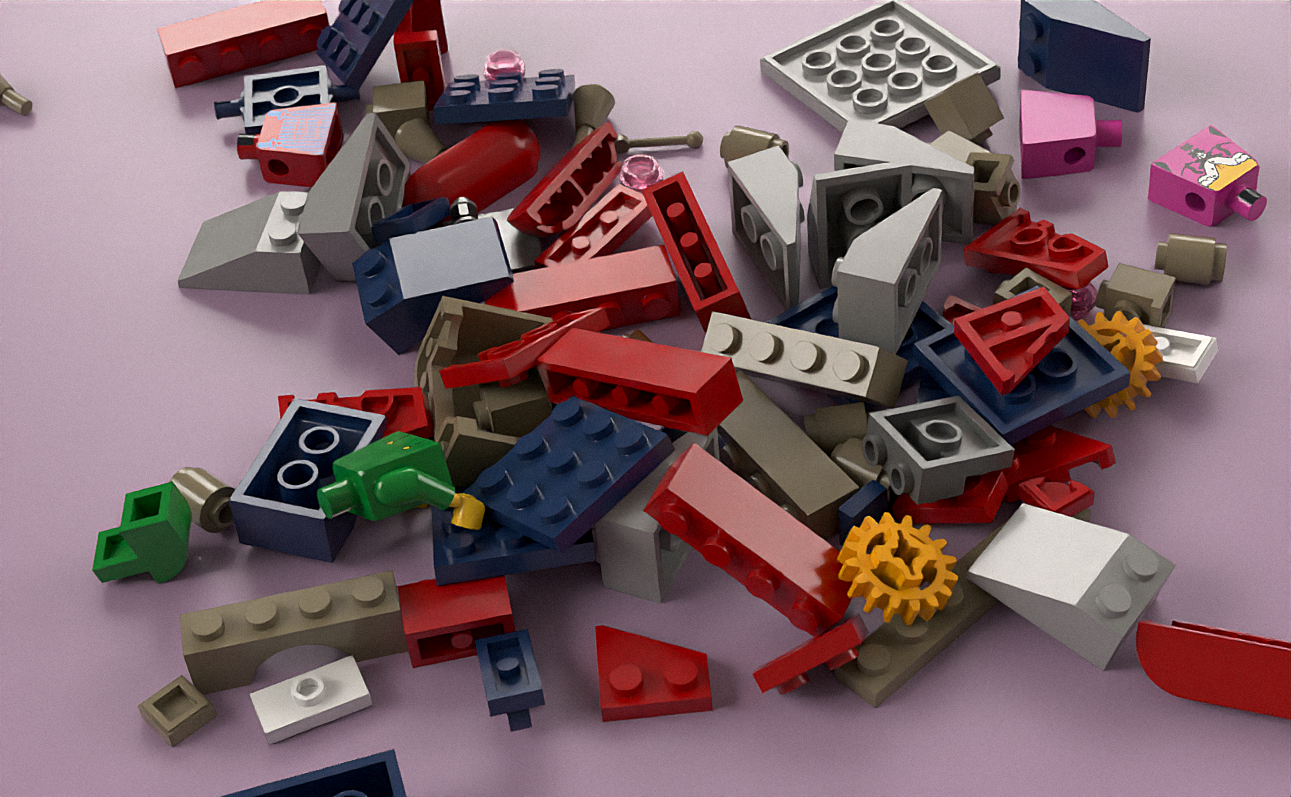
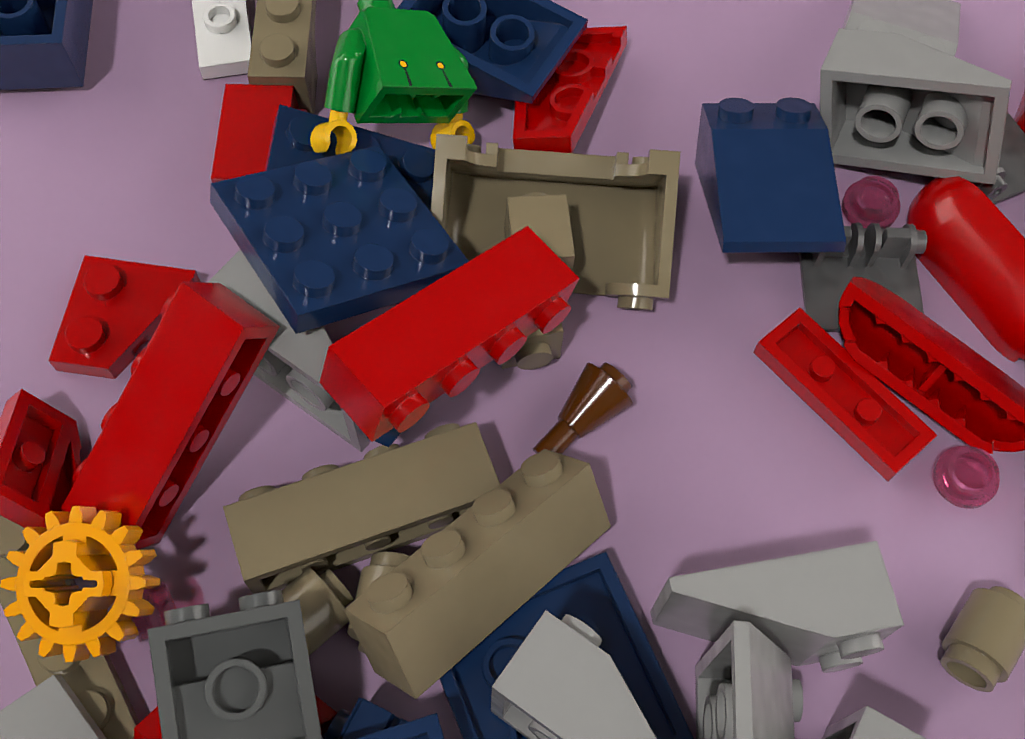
camera: 95 degrees right, 20 degrees up
(411, 219) = (884, 173): dark blue tile -> none
(510, 361) = (572, 224): red wing -> none
(510, 677) = (153, 176): dark blue plate -> none
(629, 285) = (719, 359): brick -> none
(694, 249) = (750, 493): red brick -> none
(868, 501) = (224, 578): dark blue tile -> none

